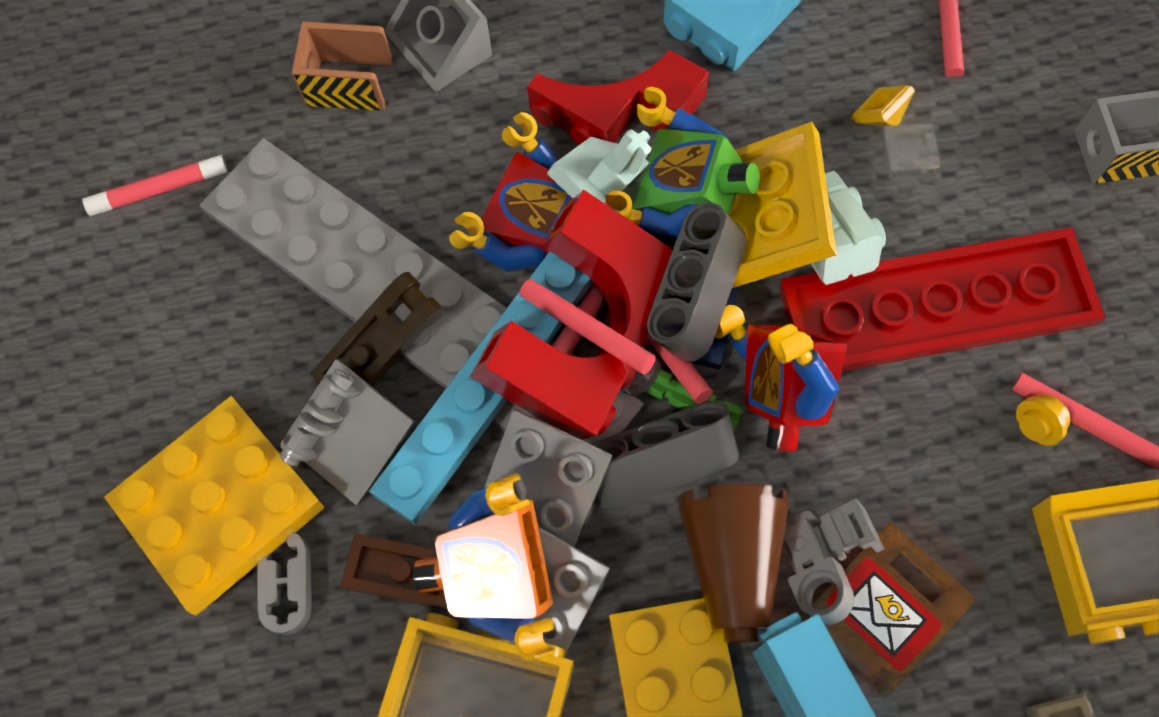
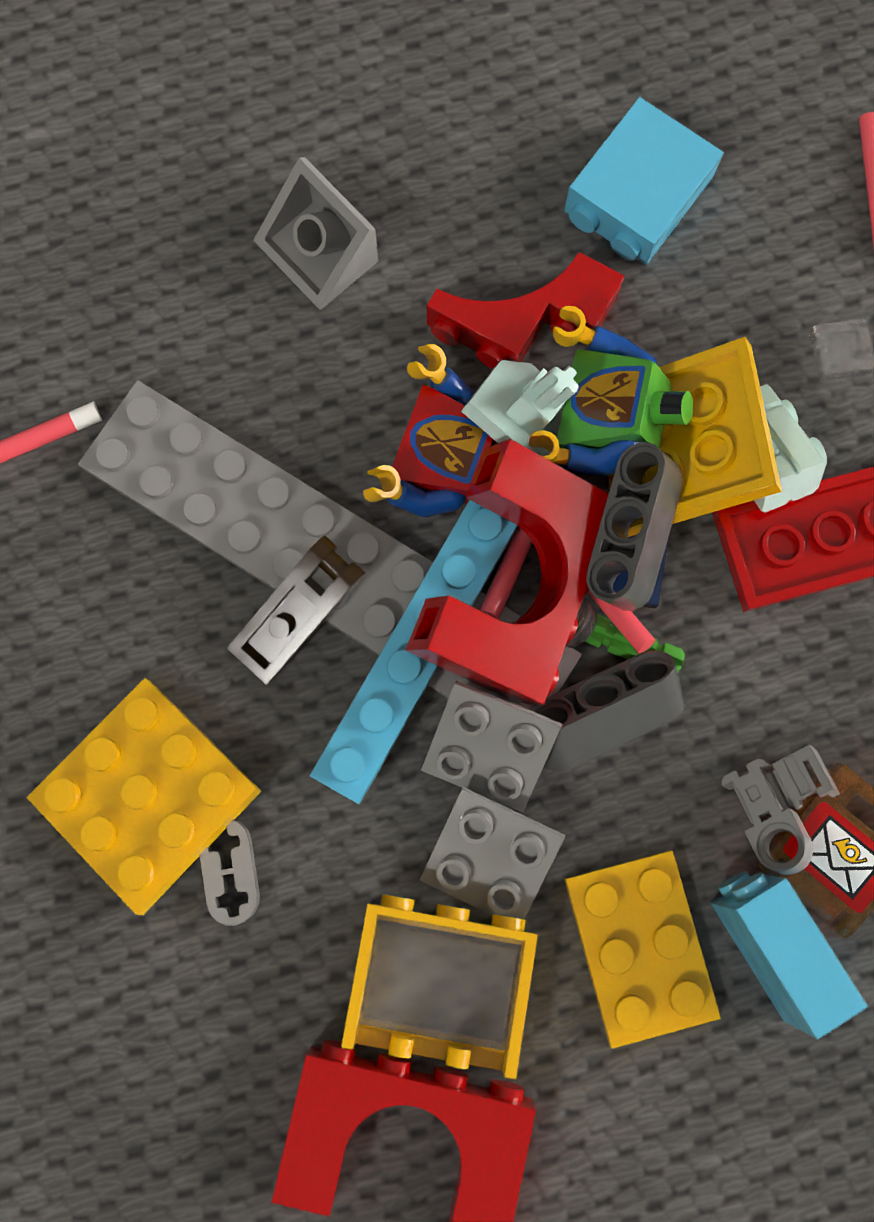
camera: 10 degrees left, 10 degrees up
(340, 44) = (214, 264): nougat piece -> none
(346, 432) = (274, 710): light grey hinge -> none
(387, 571) = (349, 852): reddish brown plate -> none
(494, 568) = (451, 852): torso -> none
(588, 326) = (524, 587): coral bar -> none
(736, 554) = (693, 815): reddish brown cone -> none
(788, 375) = (732, 617): torso -> none
(891, 113) = (825, 292): yellow slope -> none

